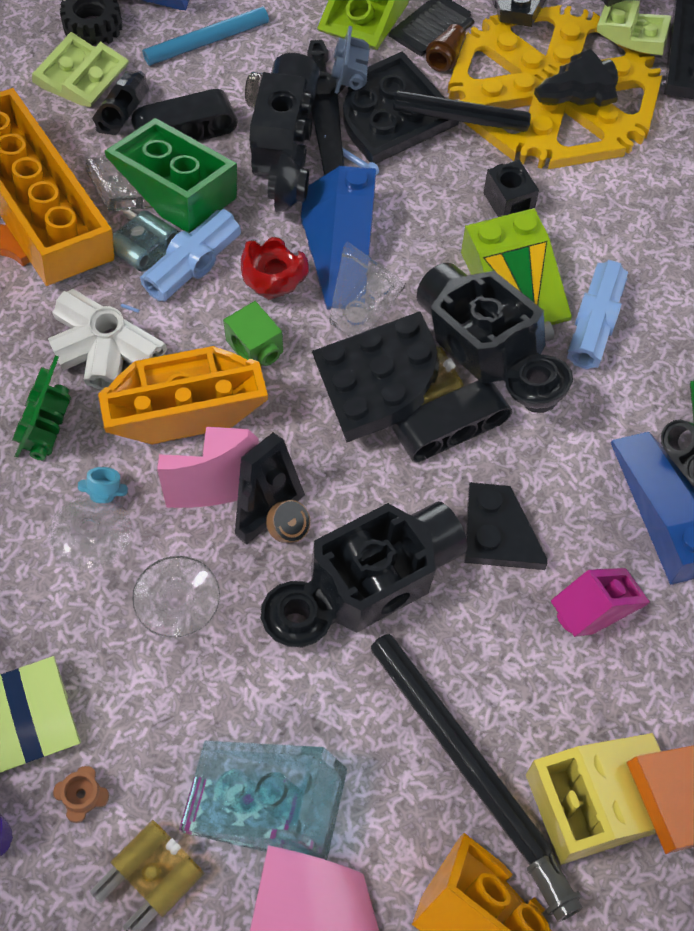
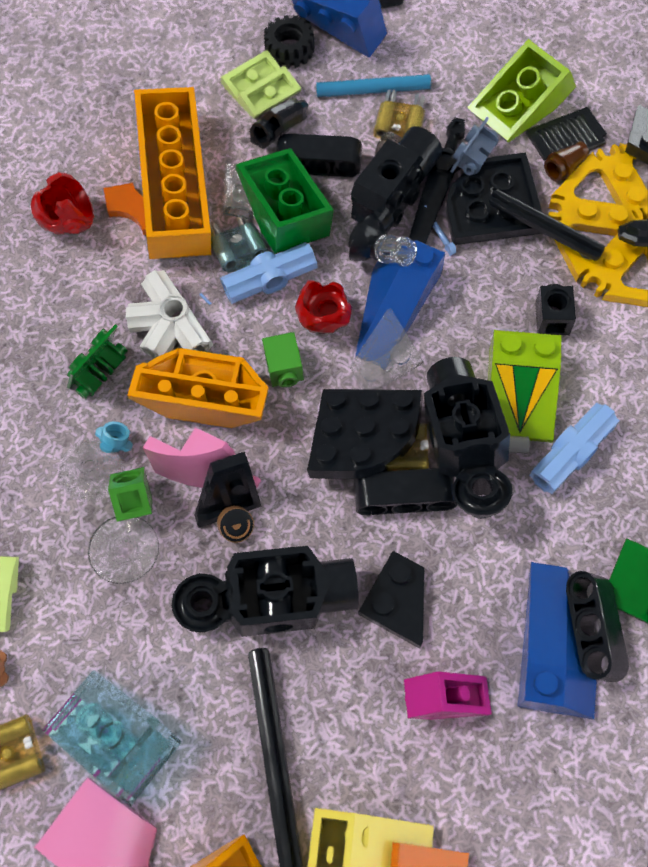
camera: 30 degrees right, 5 degrees up
(157, 533) = (130, 494): none -> bright green brick
(249, 56) = (398, 116): none -> clear yellow piece
(325, 180) = (392, 245): none -> clear bush

